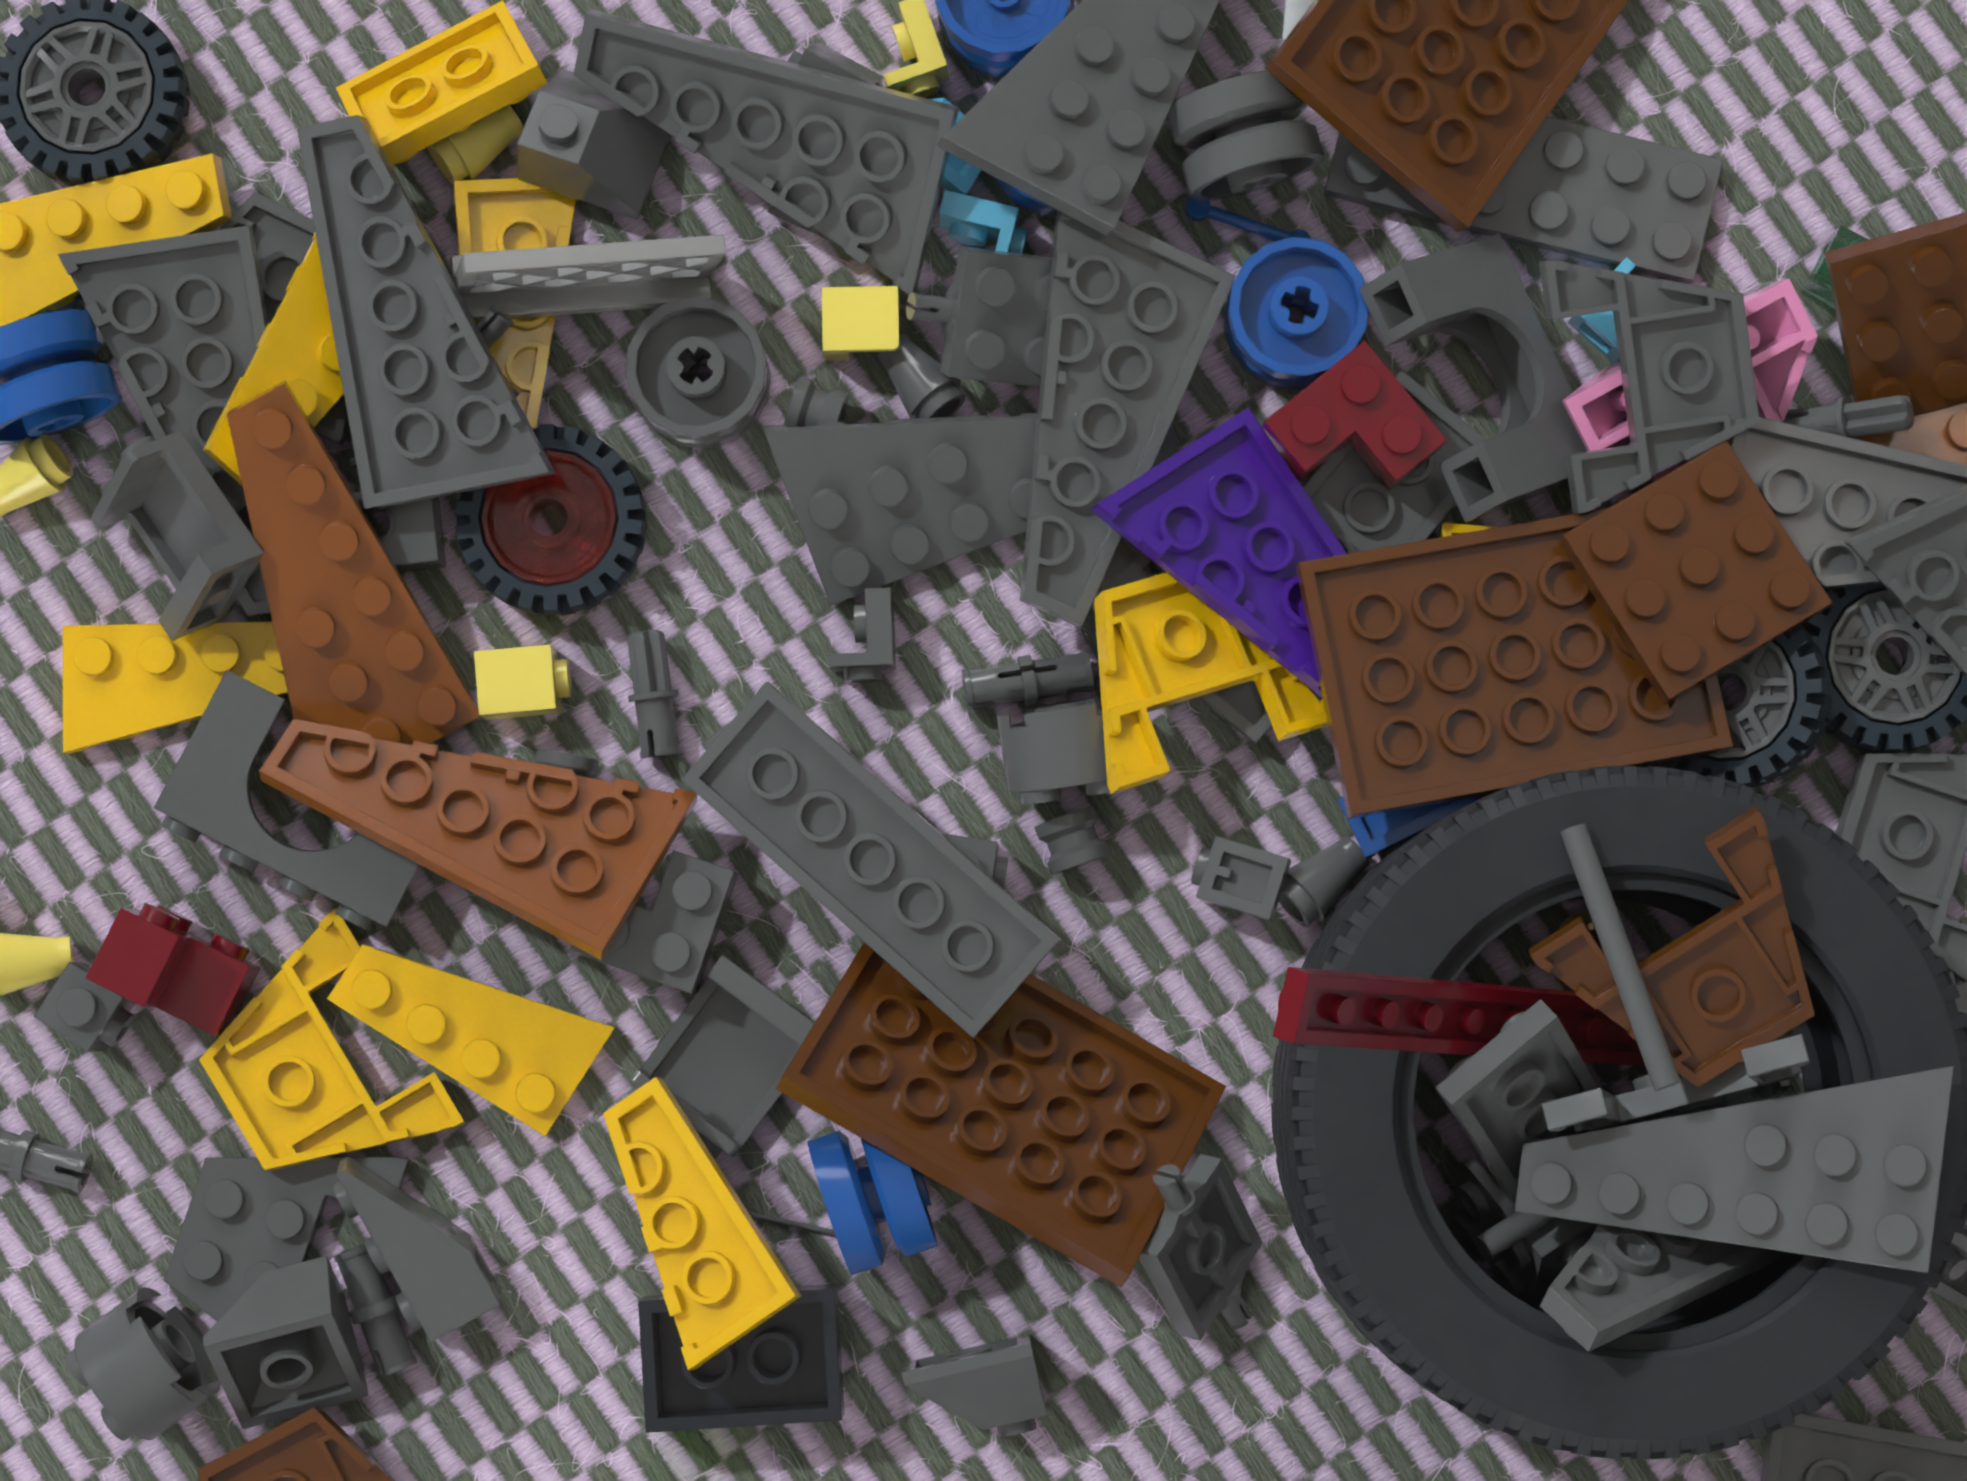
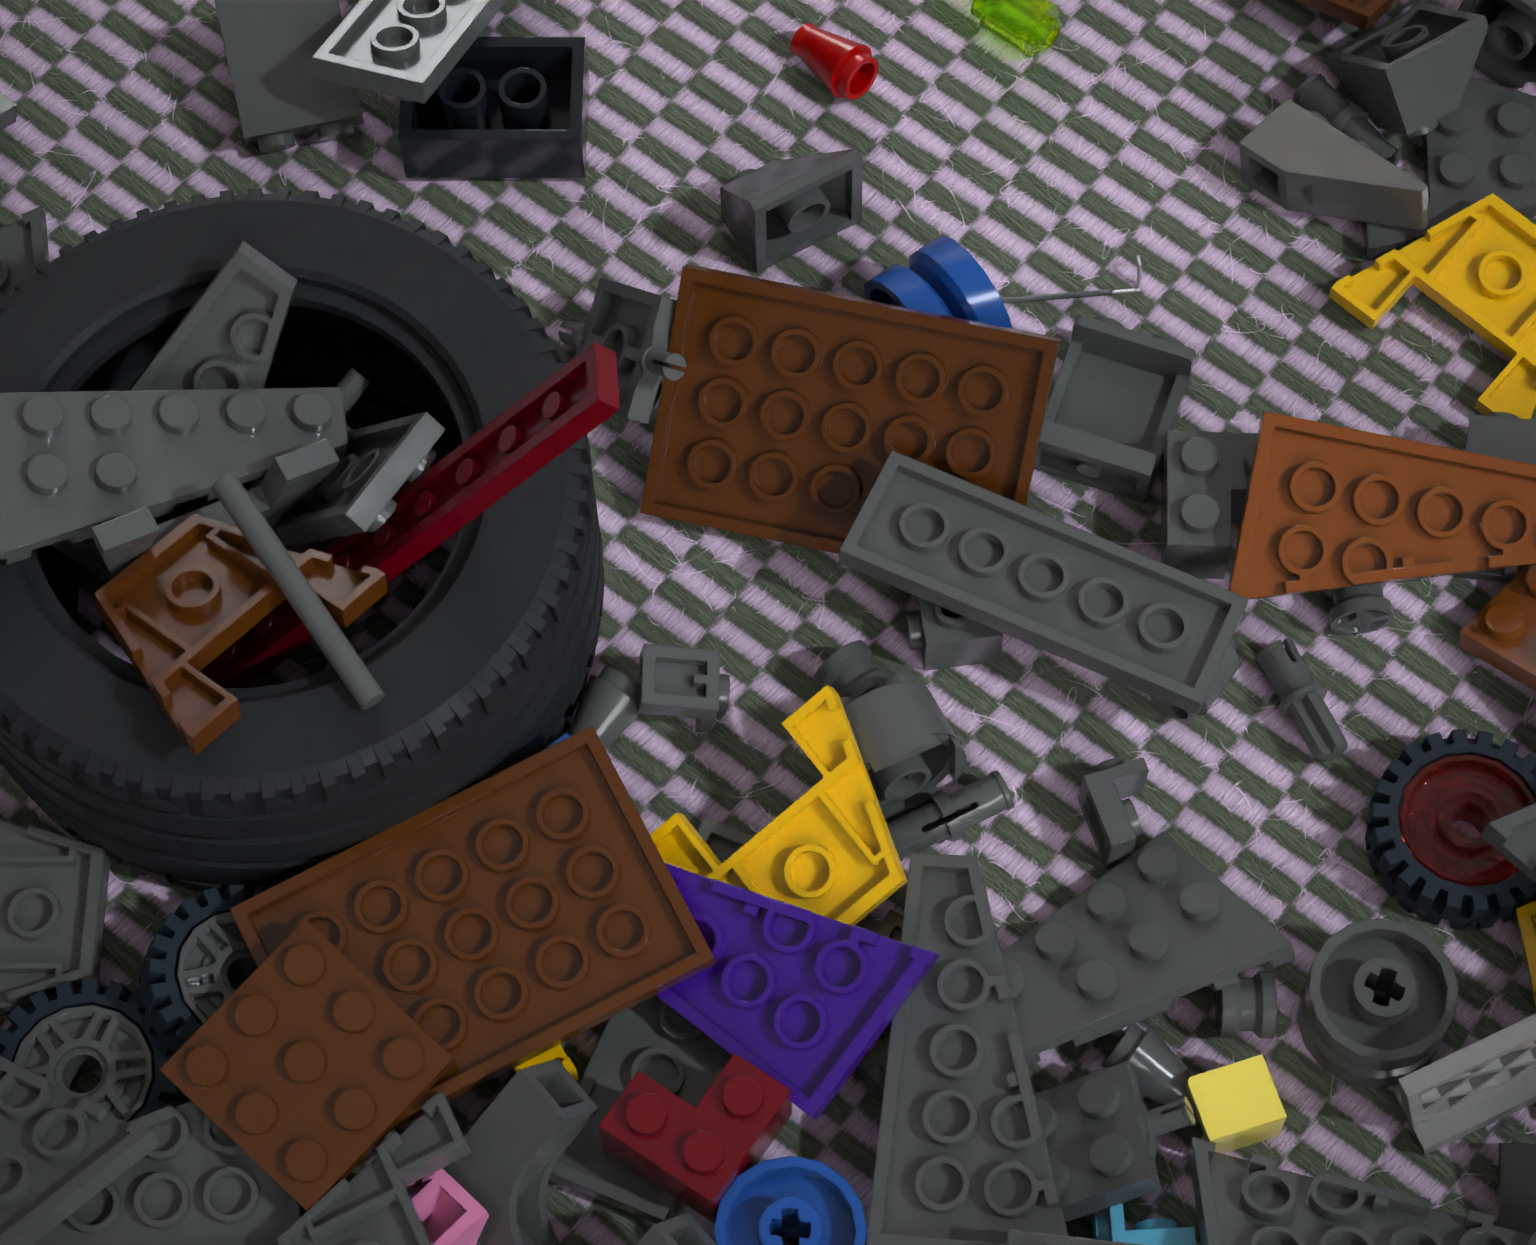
camera: 165 degrees right, 20 degrees down
(486, 1038) = (1326, 360): yellow wing -> none
(521, 682) = (1434, 672): light yellow brick -> none
(705, 1244) = (1075, 221): yellow wing -> none
(770, 1376) = (1009, 163): black brick -> none

